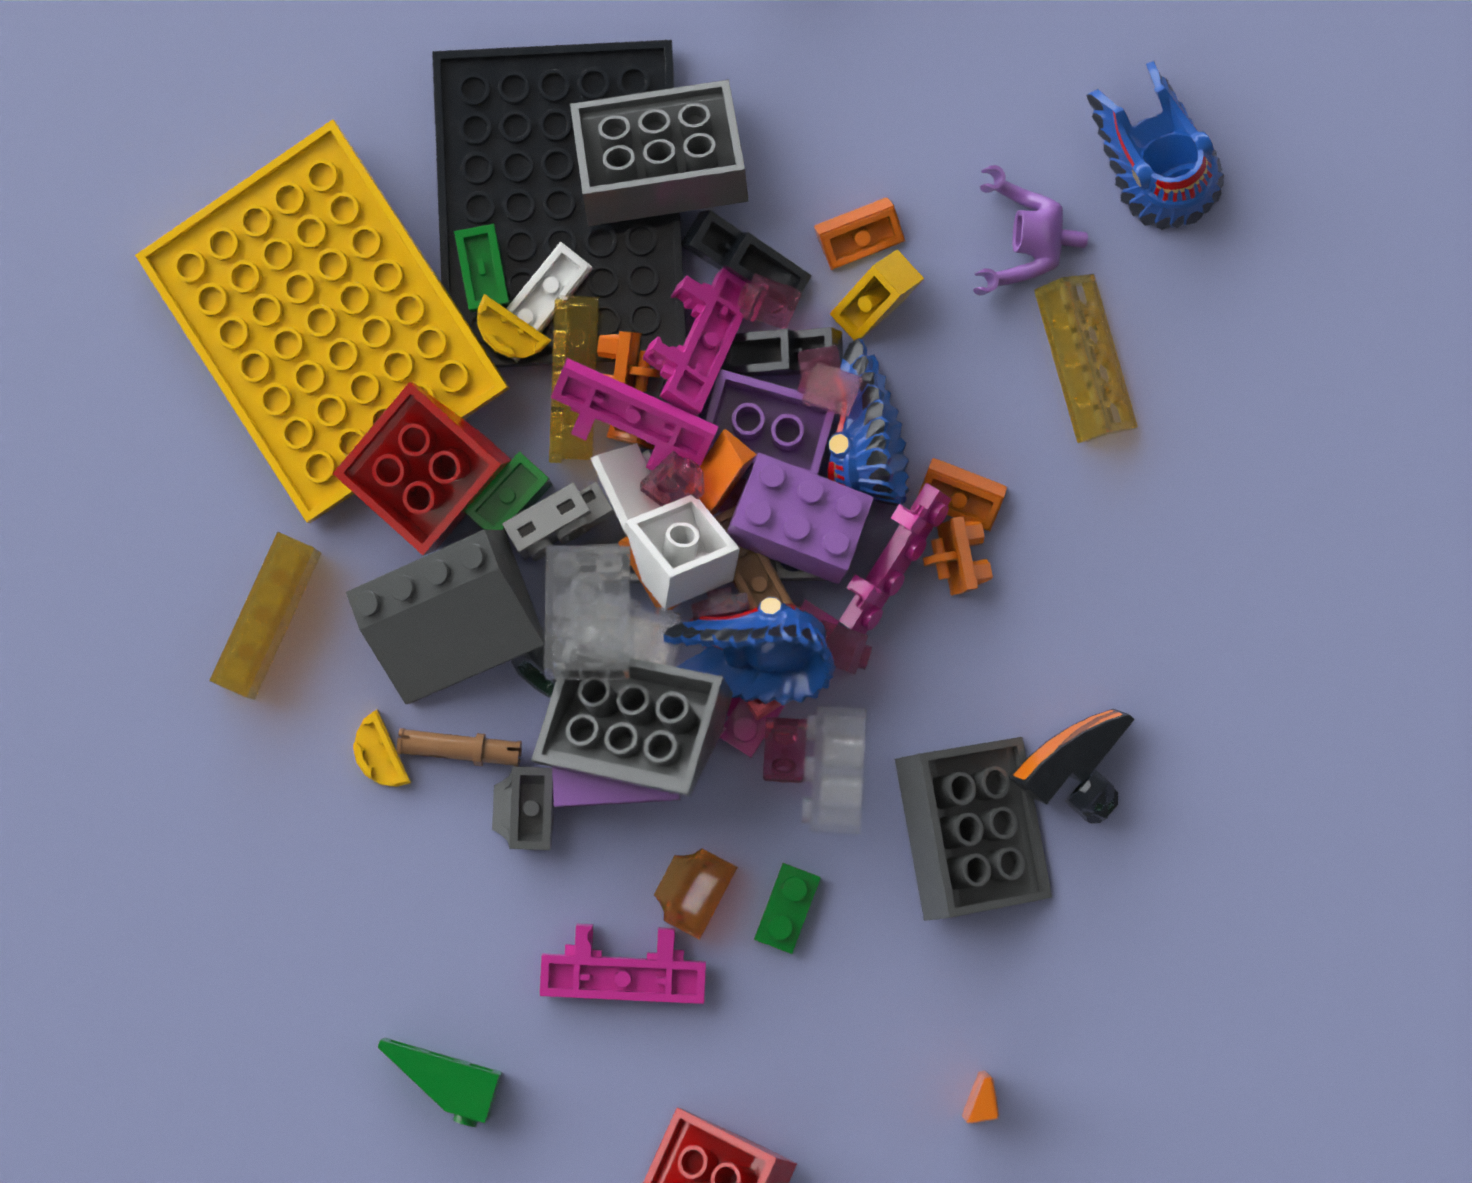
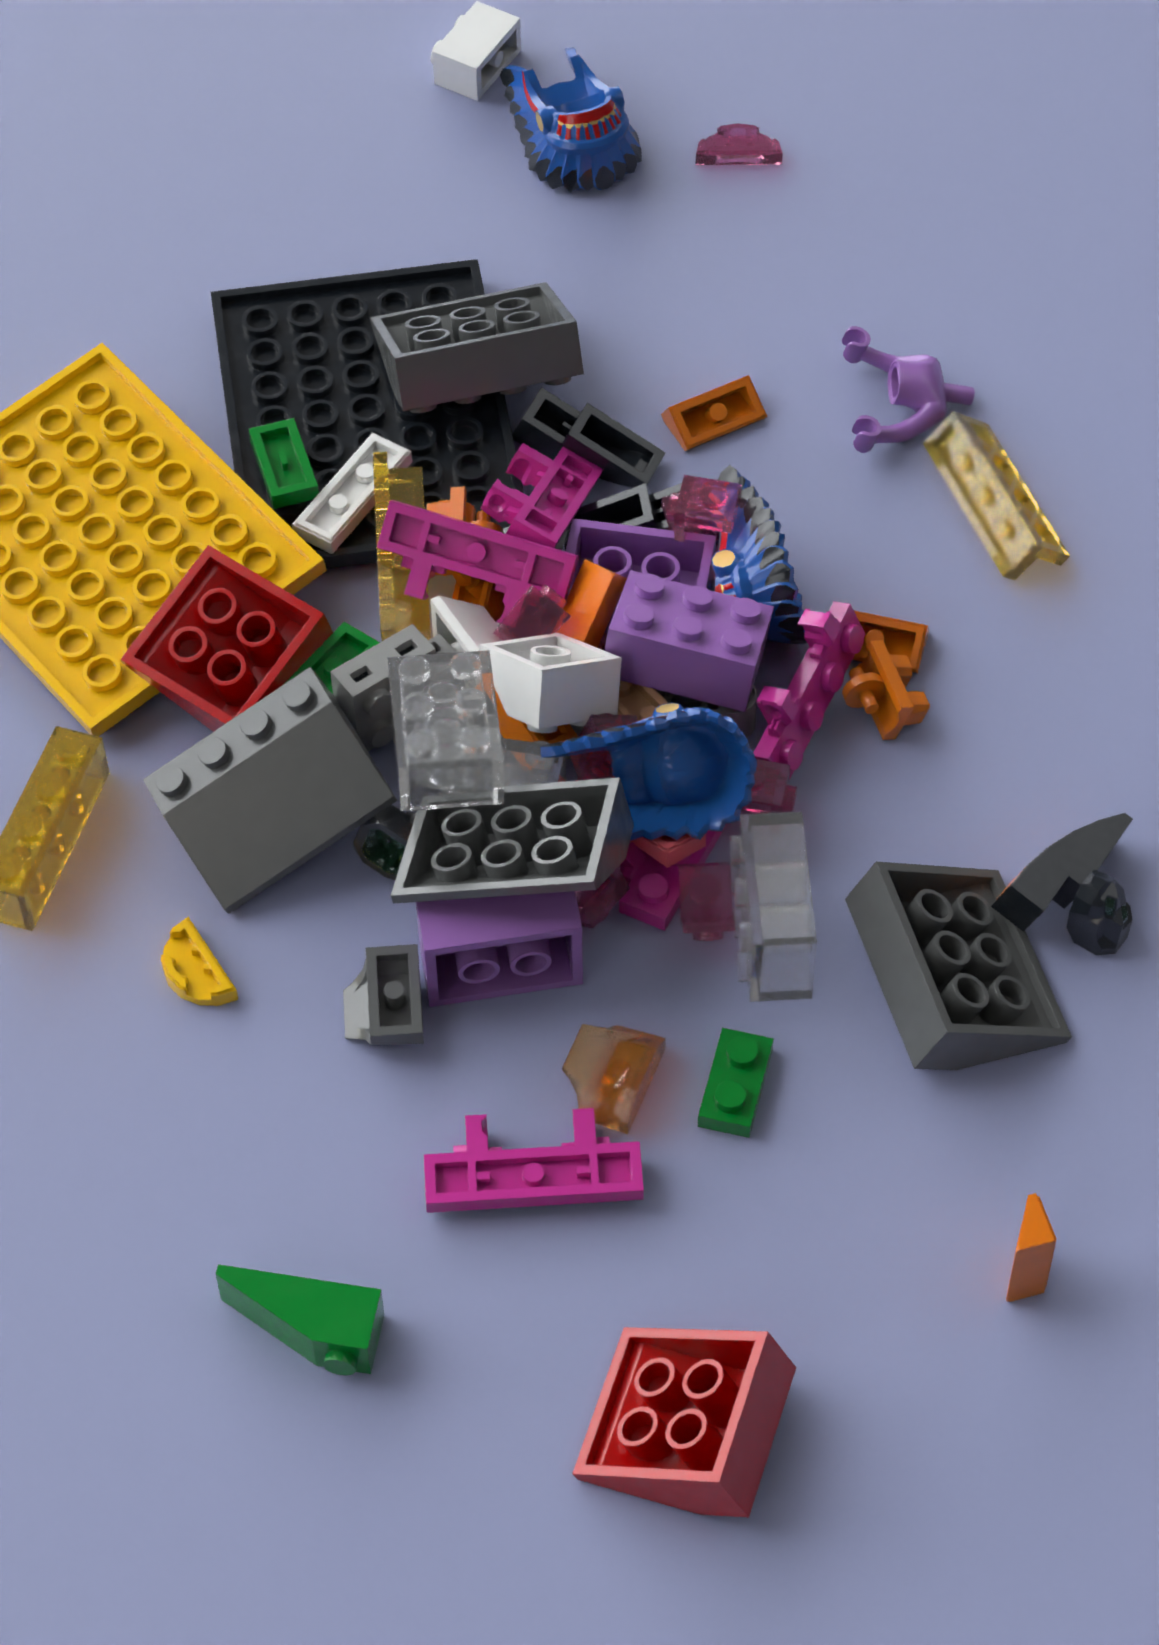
camera: 10 degrees left, 30 degrees down
(458, 747) = (295, 945): medium nougat pin -> none
(507, 332) = (320, 511): yellow tile -> none
(768, 301) = (618, 462): clear pink bracket -> none
(876, 295) = (750, 445): yellow slope -> none
(1161, 163) = (1040, 313): blue piece -> none

